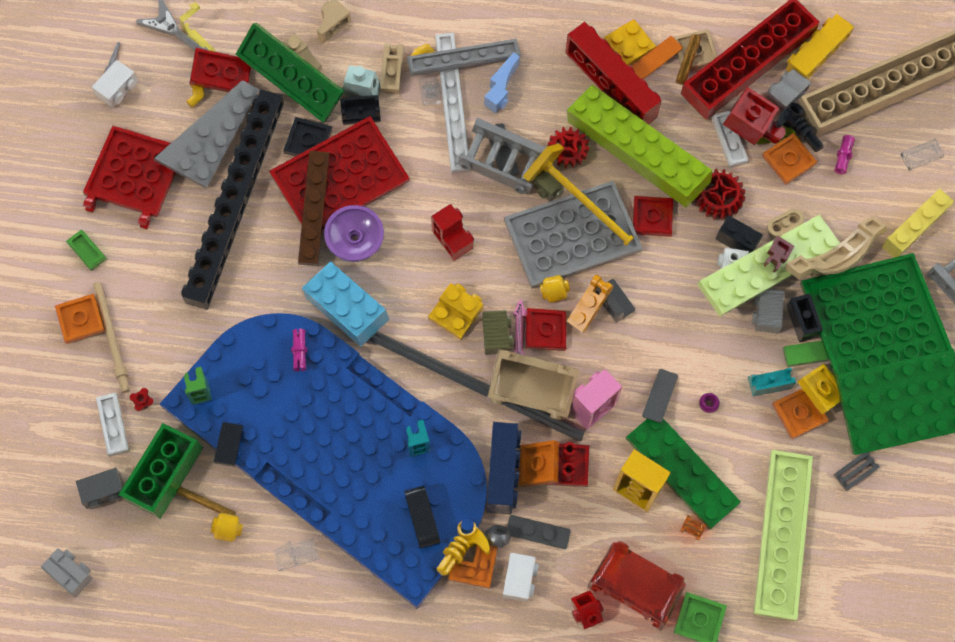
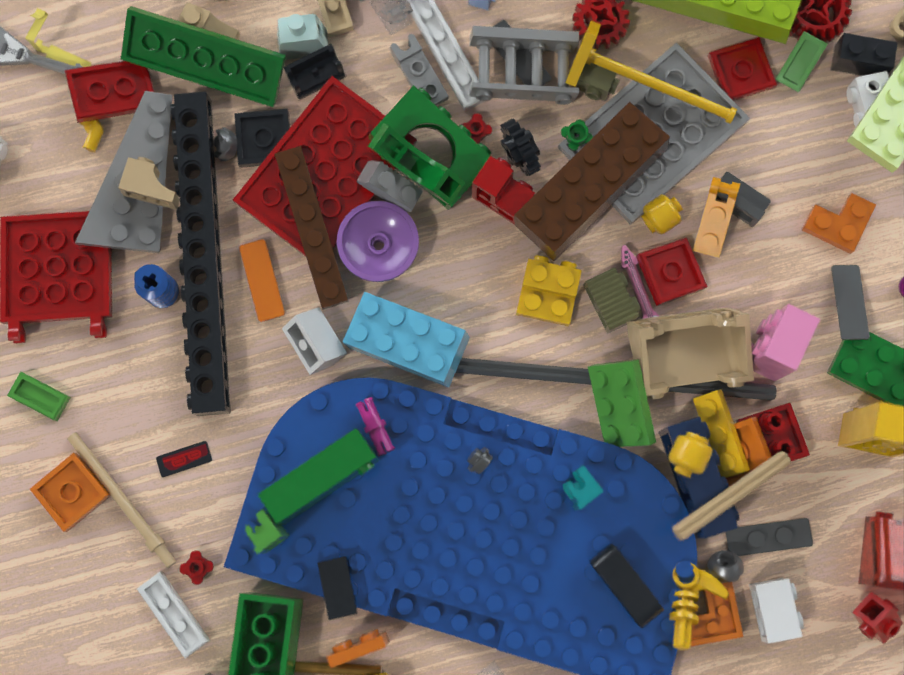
camera: 15 degrees left, 10 degrees up
(164, 327) = (184, 459): none -> sticker
(194, 206) = (156, 286): none -> blue piece
(214, 137) = (142, 183): none -> tan arch
(231, 490) = (348, 651): none -> orange plate
(247, 365) = (319, 477): none -> green brick
(266, 231) = (262, 280): none -> orange piece
(280, 134) = (225, 144): none -> flat silver plate
(283, 281) = (317, 340): none -> white brick
(358, 397) = (479, 460): none -> dark grey plate
(377, 200) = (389, 185): none -> light grey brick
(398, 190) = (416, 165): none -> green arch
(415, 159) = (418, 112): none -> green arch
(430, 137) = (418, 70): none -> light grey plate
(453, 192) = (484, 129): none -> red plate
(471, 399) = (622, 403): none -> bright green plate
(475, 208) = (520, 147): none -> black gear
(498, 442) = (690, 454): none -> yellow head
(513, 210) = (576, 127): none -> green plate
(513, 247) = (591, 181): none -> reddish brown brick
(516, 481) = (731, 495): none -> tan axle
(531, 445) = (724, 437): none -> yellow plate
(675, 346) = (842, 229): none -> orange plate
(693, 224) = (801, 61): none -> bright green tile

